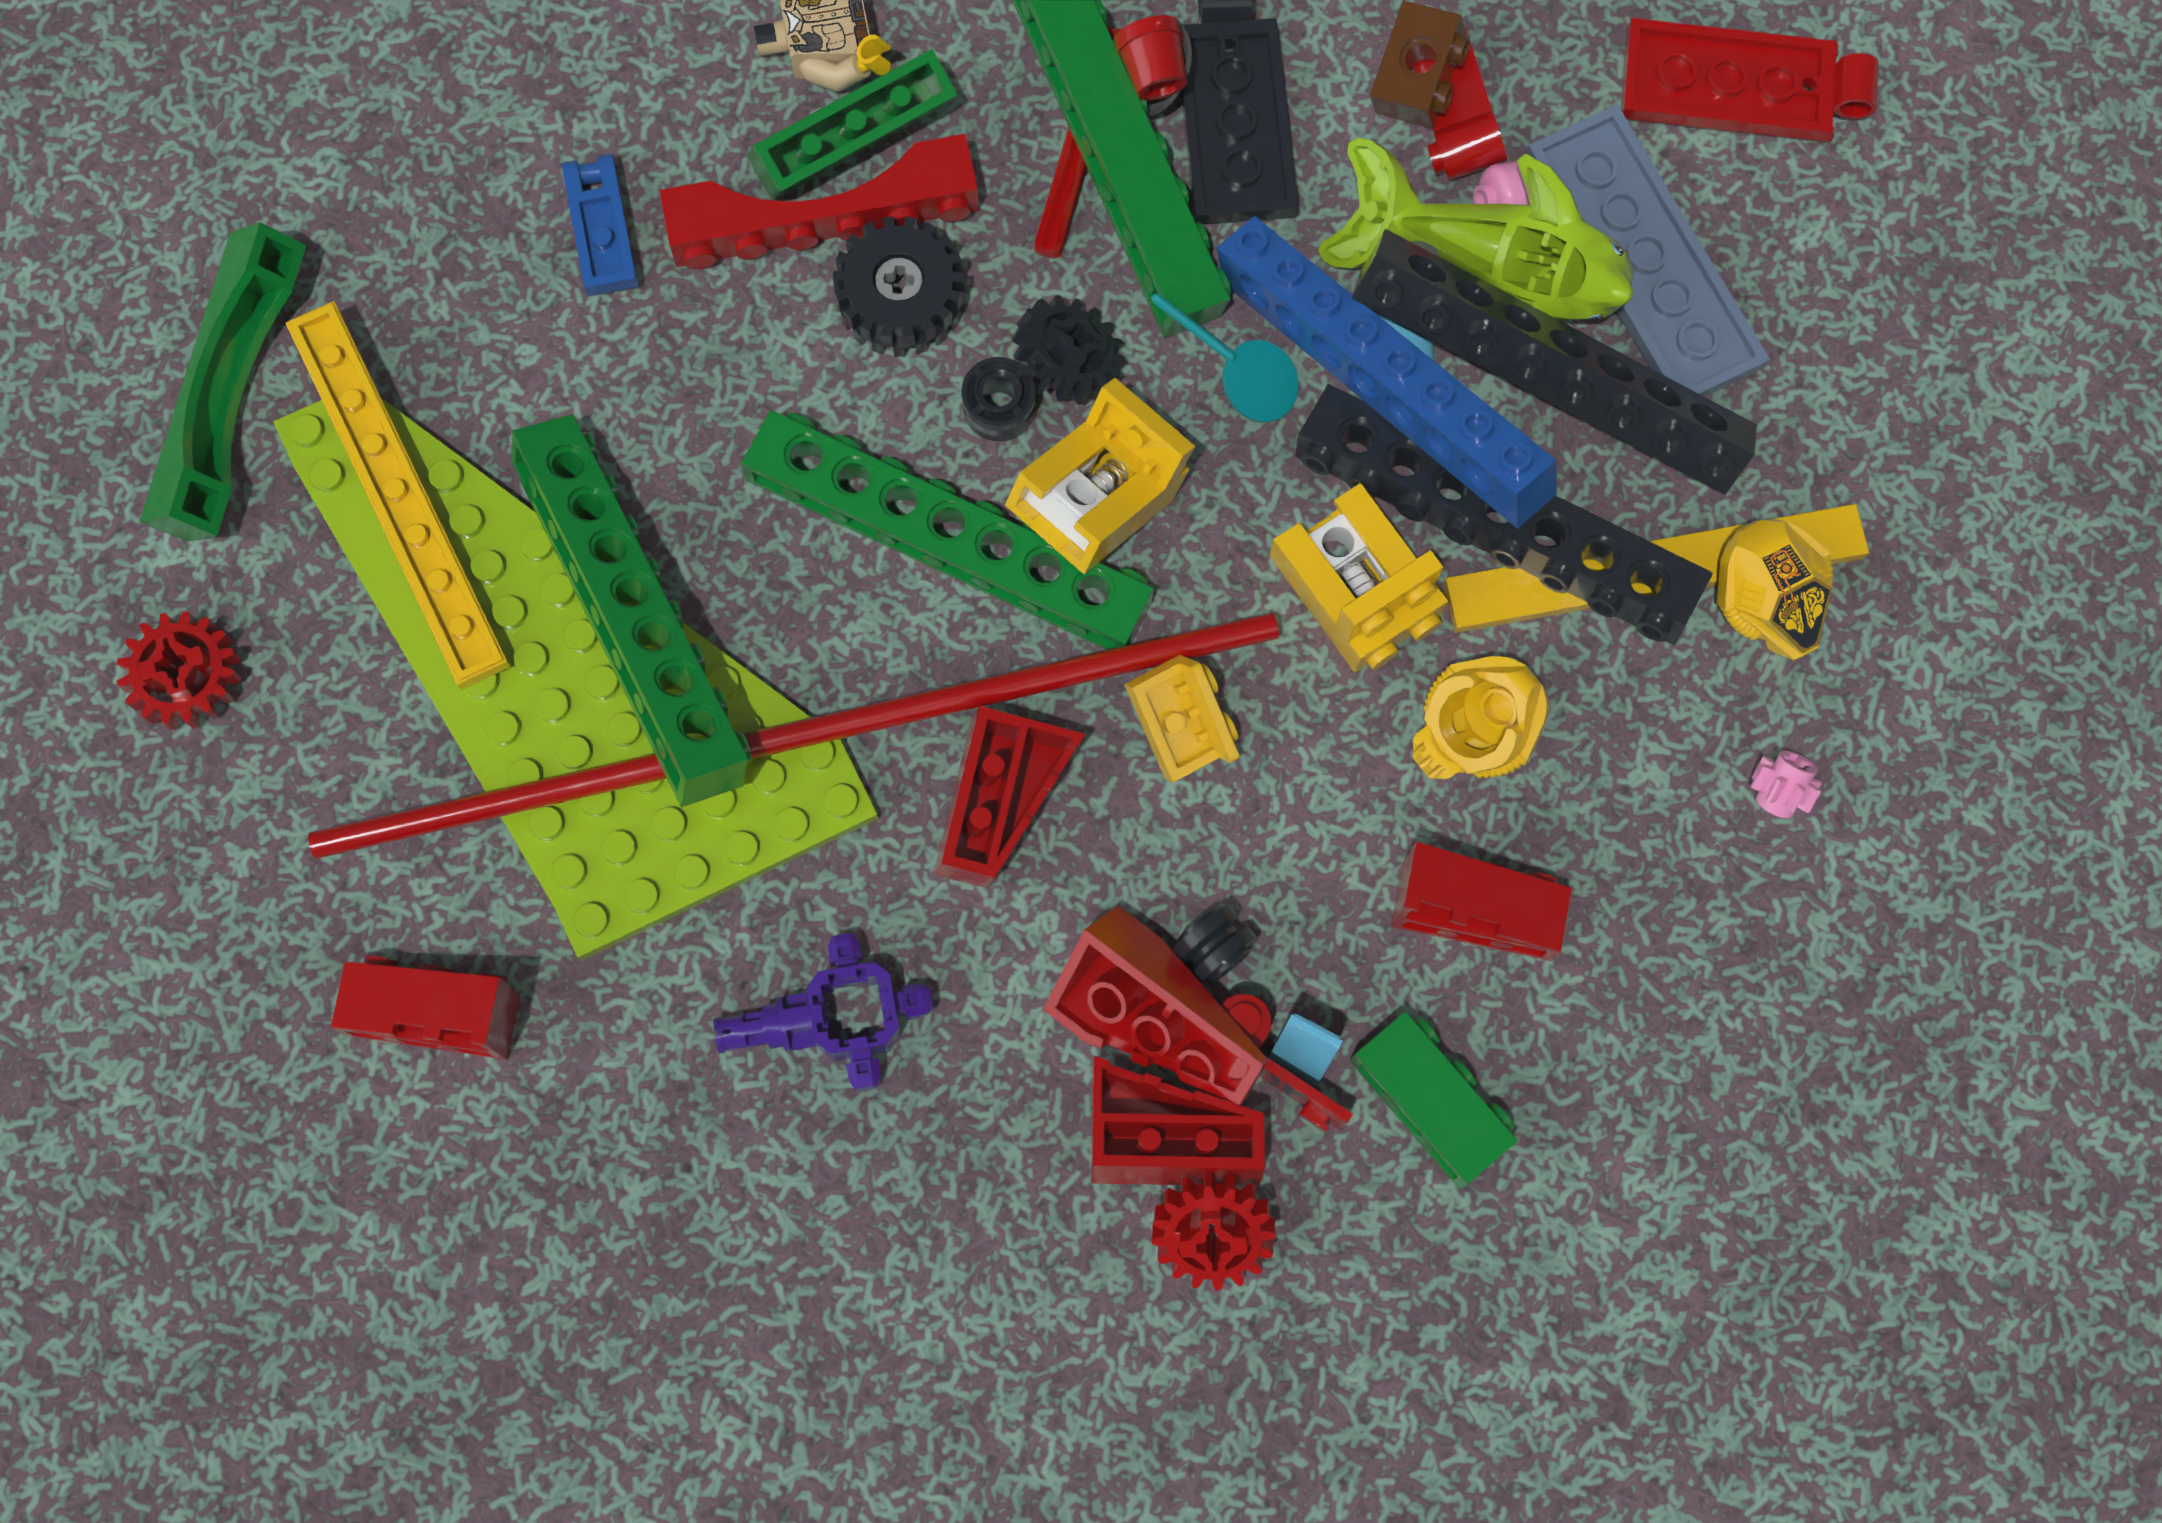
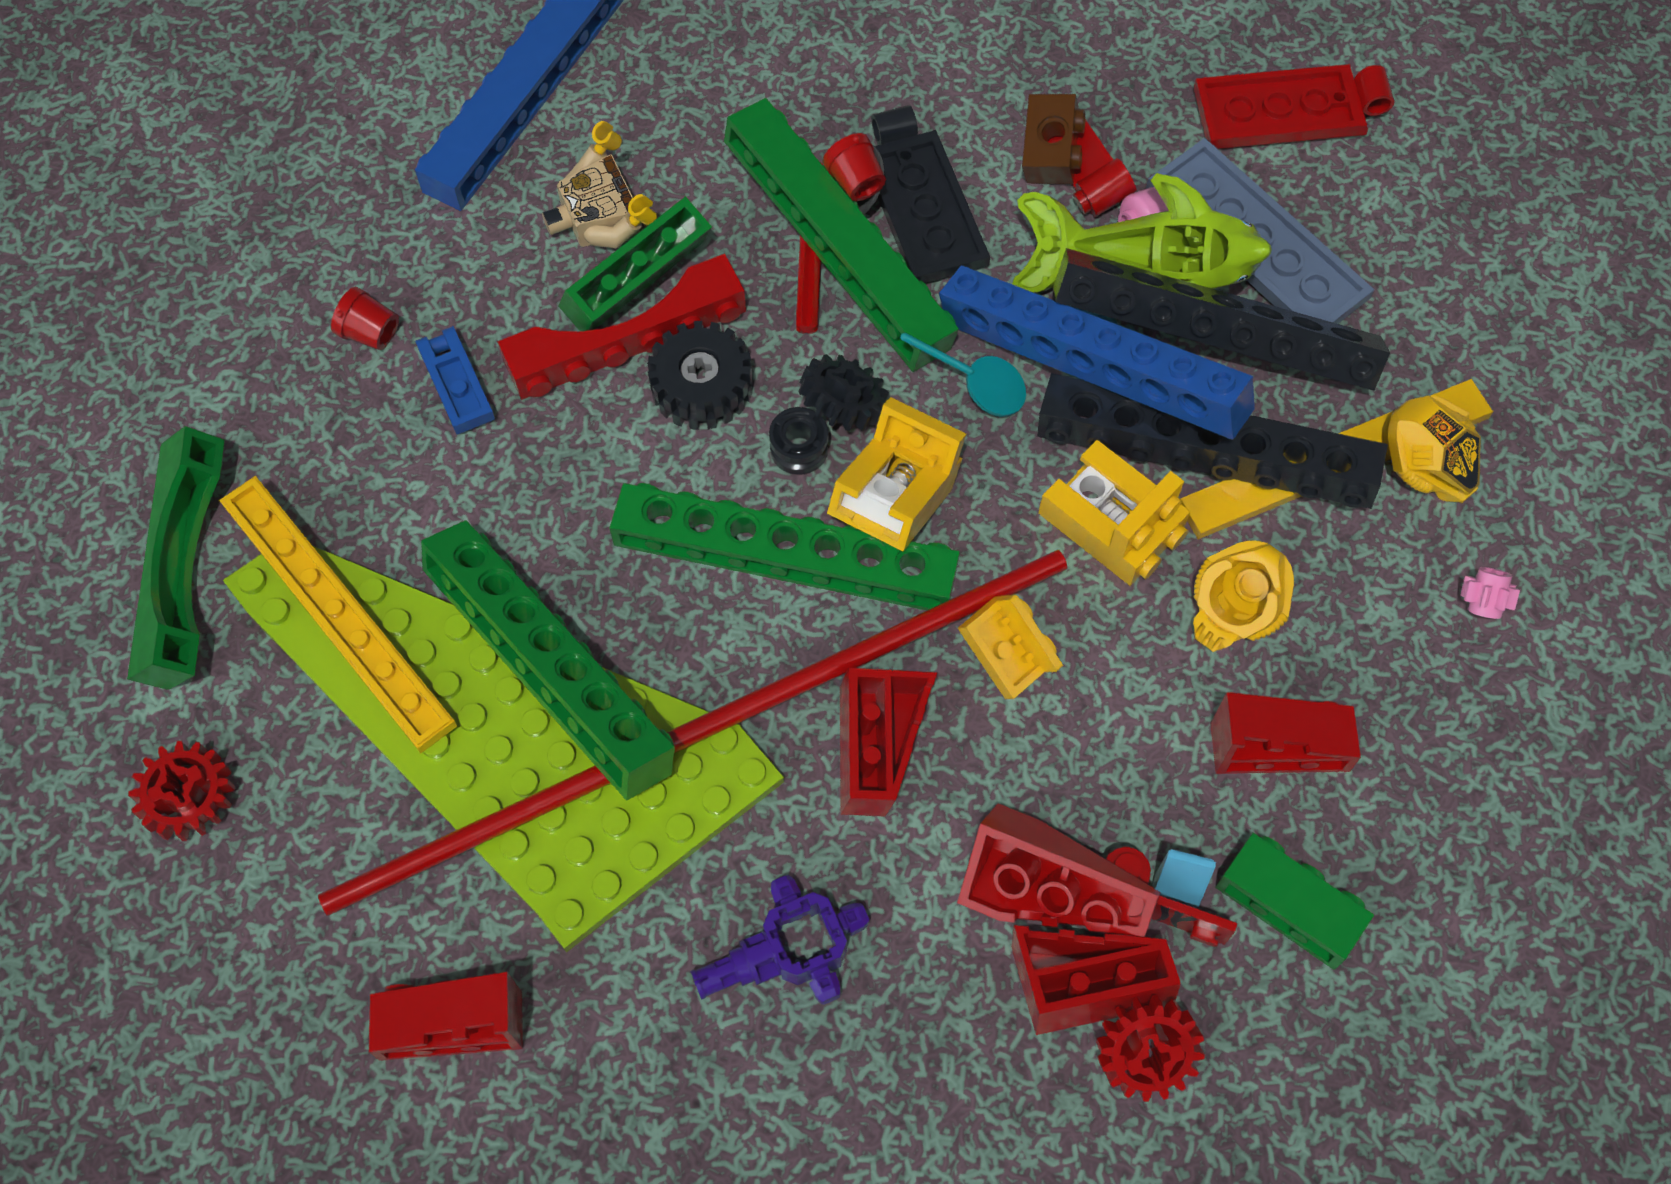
camera: 10 degrees left, 10 degrees down
(505, 122) = (364, 319): none -> red piece
(1214, 944) = (1084, 815): black wheel -> none

